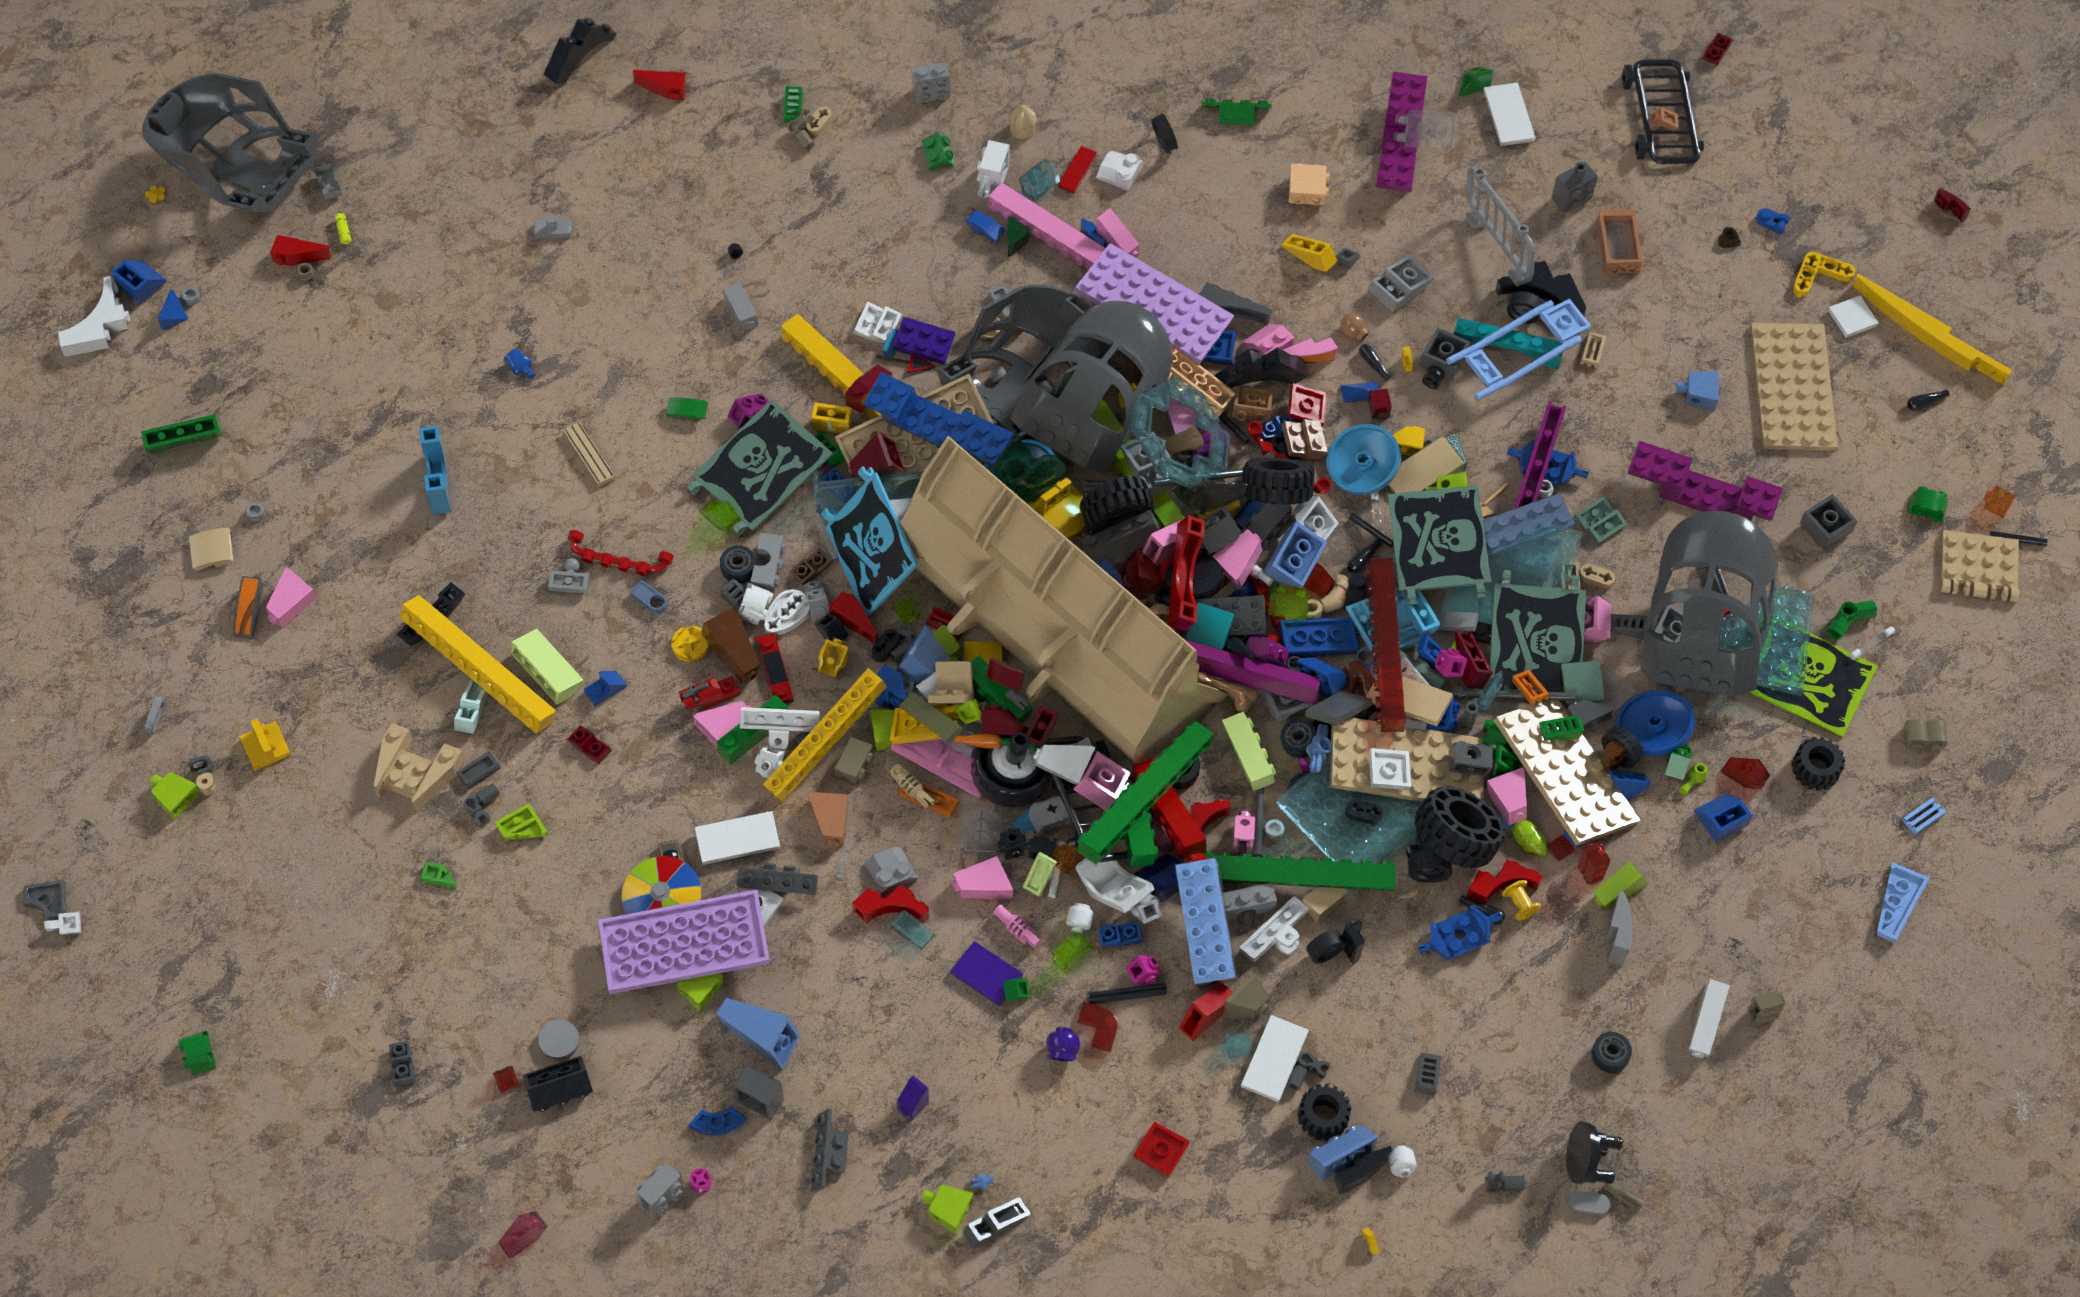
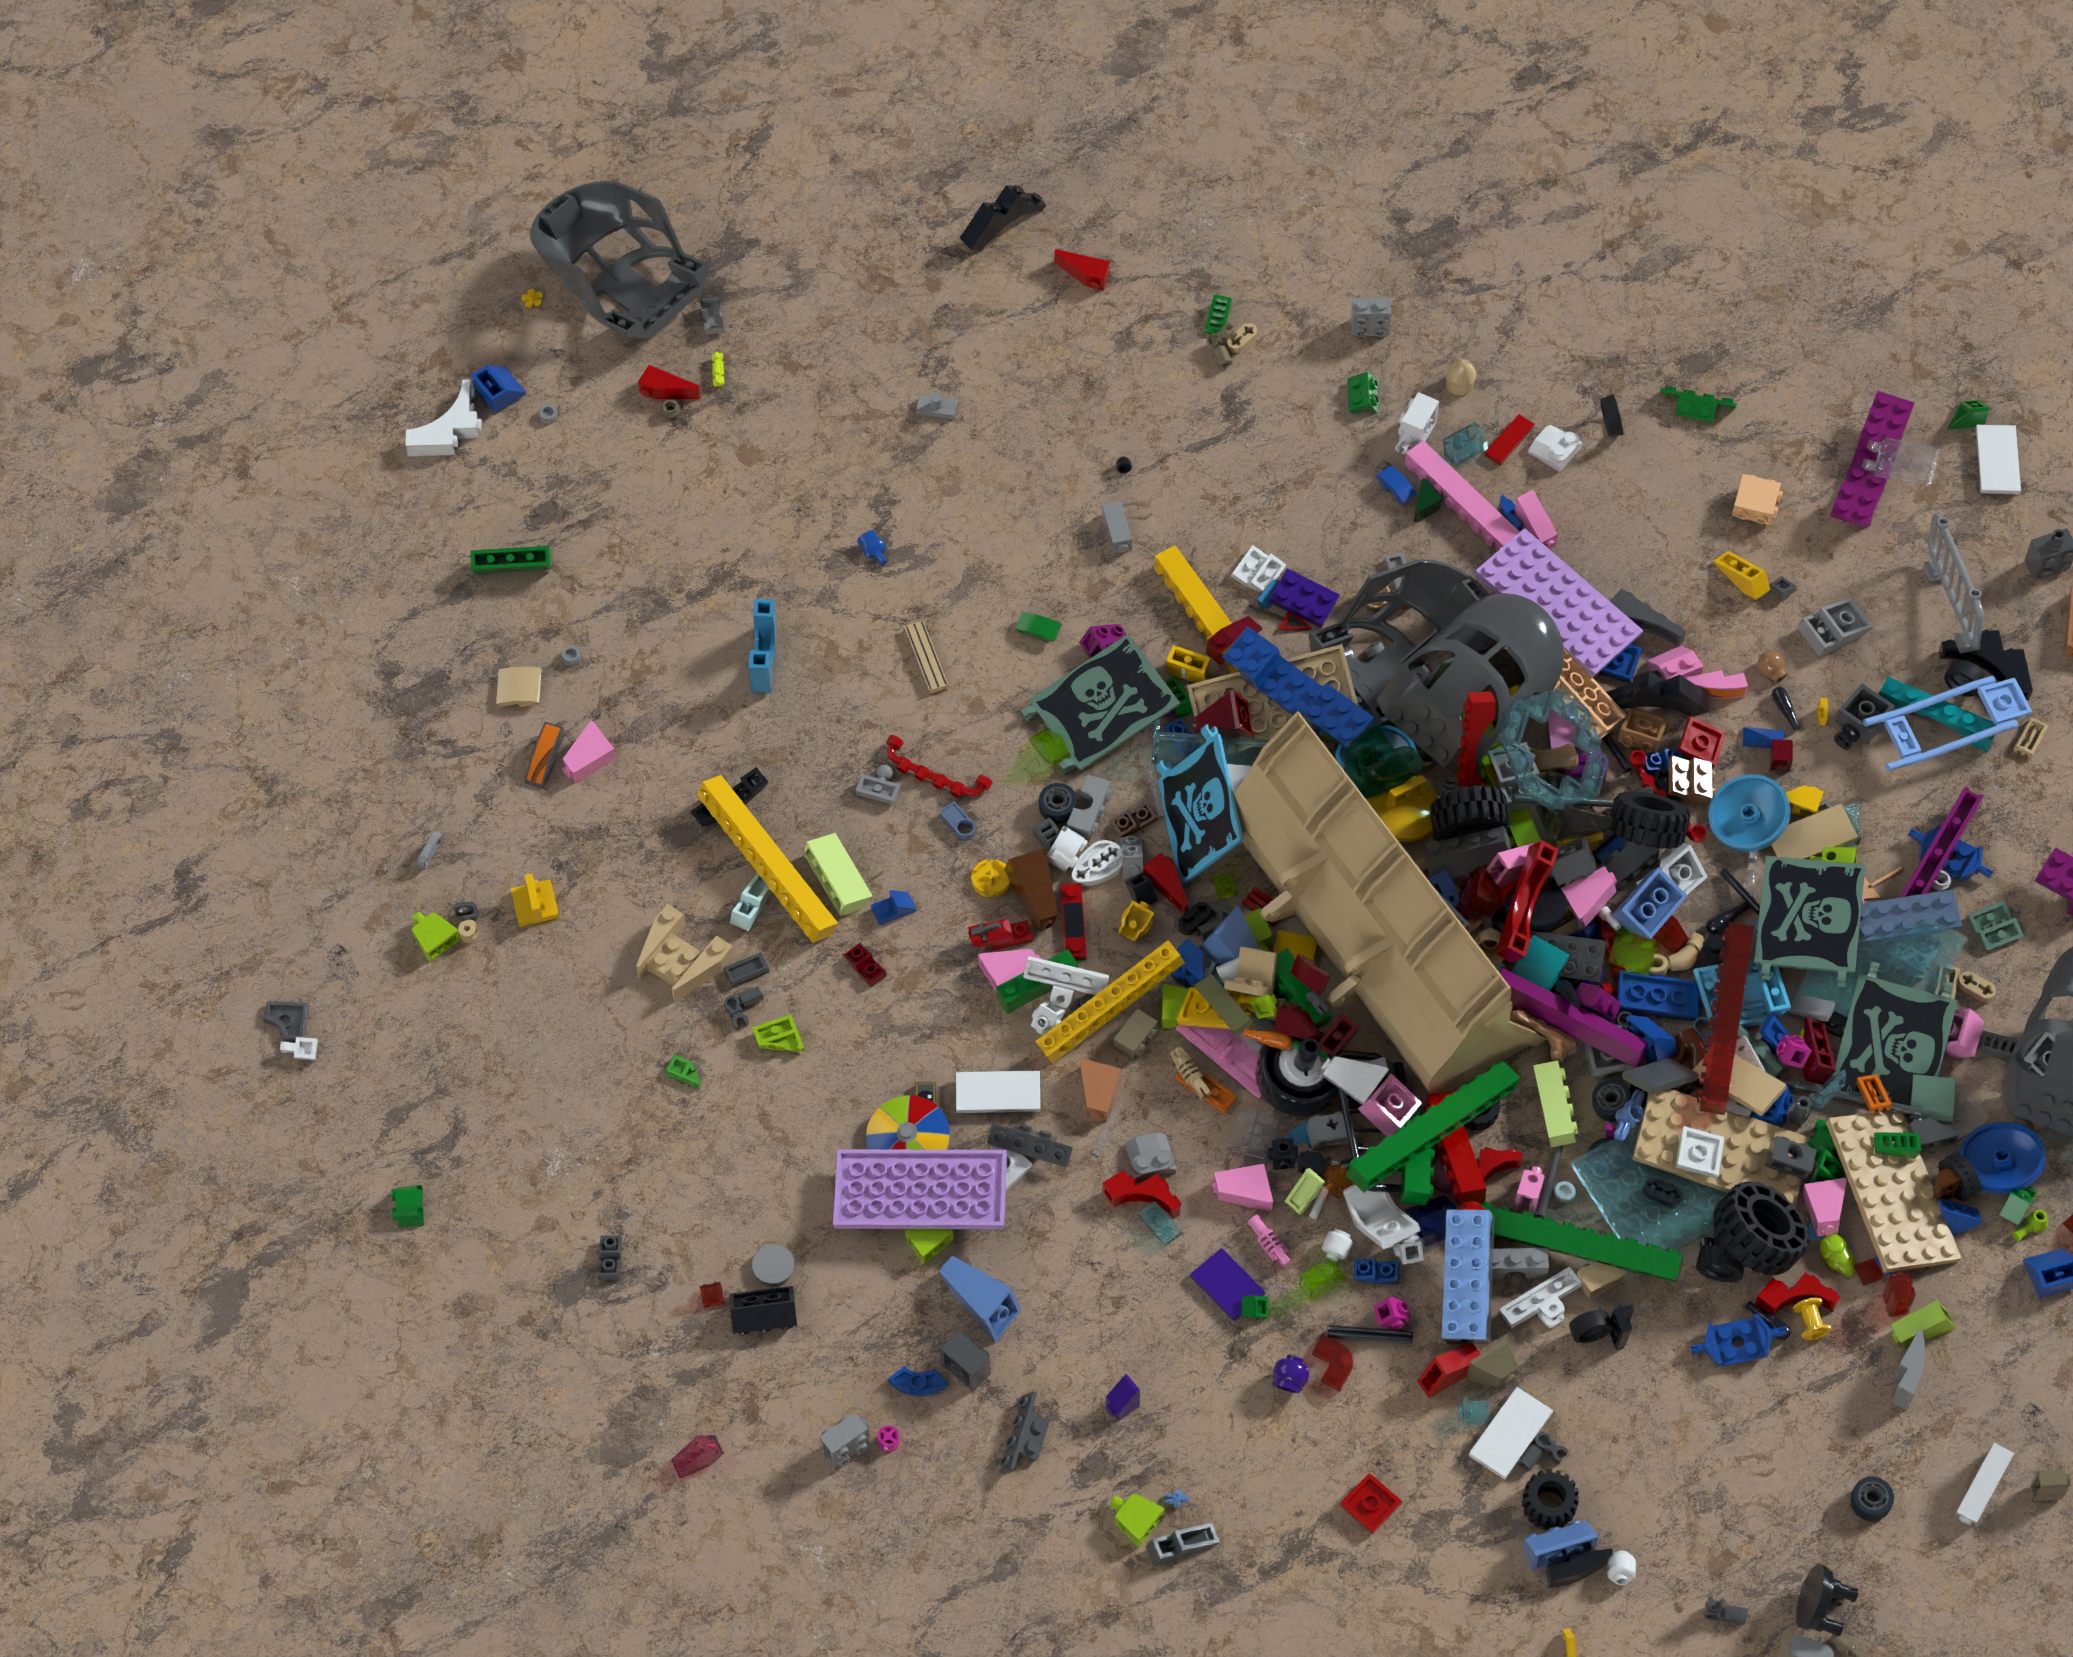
camera: 15 degrees right, 0 degrees up
(172, 312) = (525, 428): blue slope -> none
(1109, 411) = (1479, 713): none -> red arch
(1428, 1087) = (1666, 1496): dark grey slope -> none

